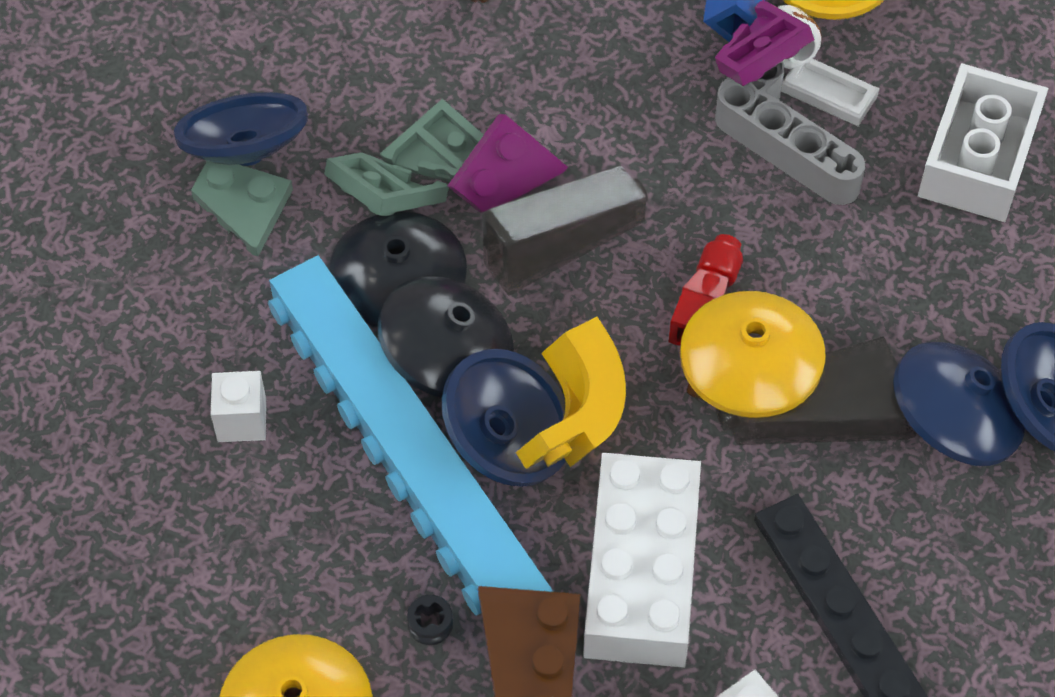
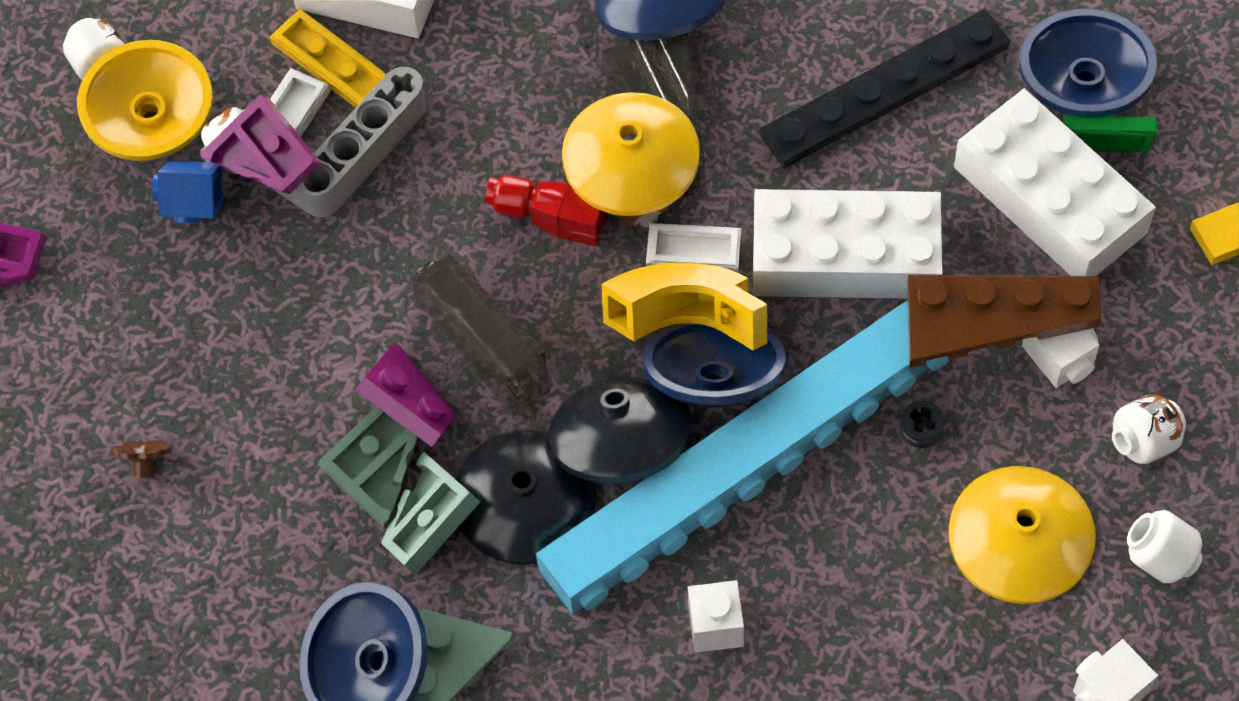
camera: 90 degrees left, 5 degrees up
(657, 419) = (693, 245): none -> white tile
(895, 120) = (327, 57): none -> yellow tile

